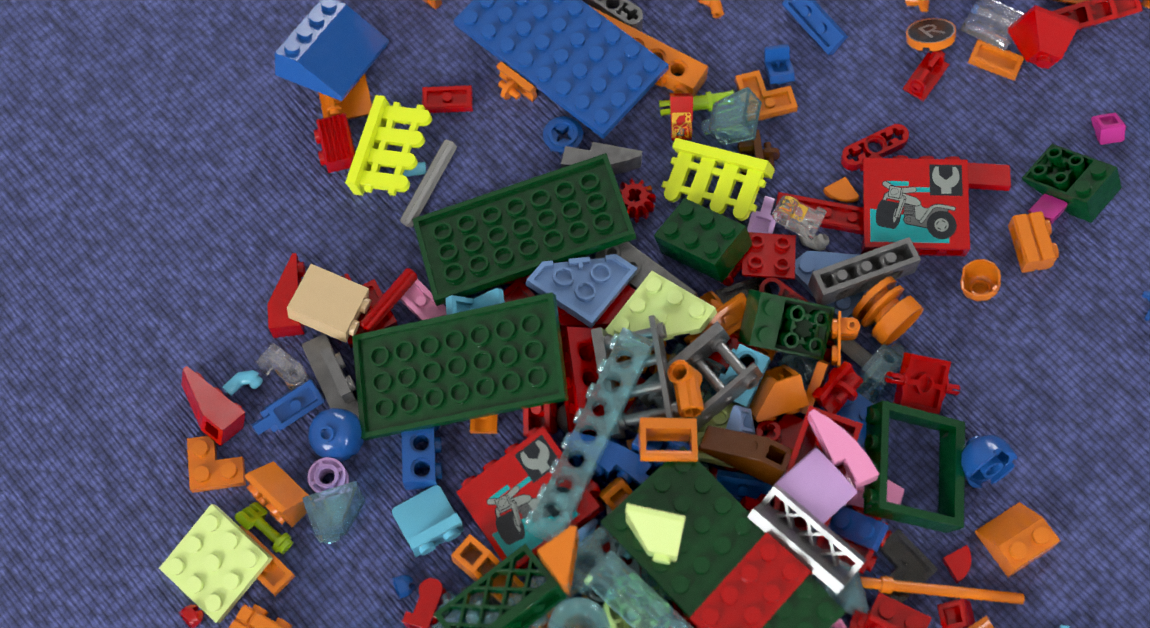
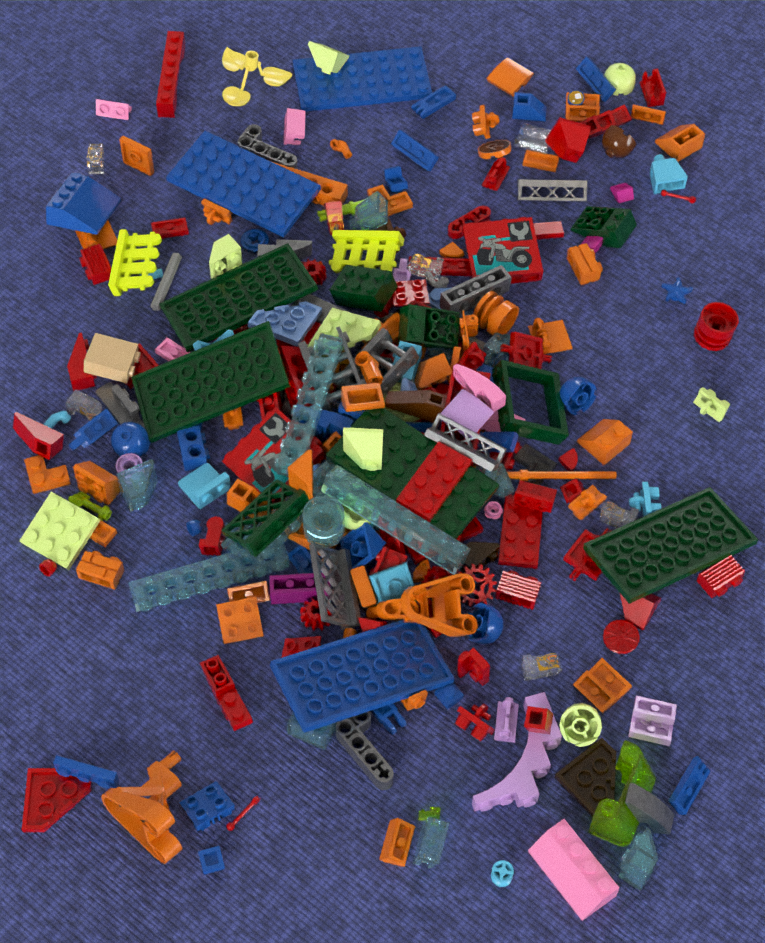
camera: 15 degrees left, 10 degrees down
(388, 300) = (152, 352): red axle -> none
(513, 162) = (224, 256): none -> yellowish green slope
(966, 351) = (553, 334): none -> orange hinge
(980, 280) = (553, 290): orange hair -> none
(1005, 101) = (552, 183): none -> flat silver fence
(1114, 49) = (616, 143): none -> reddish brown cylinder

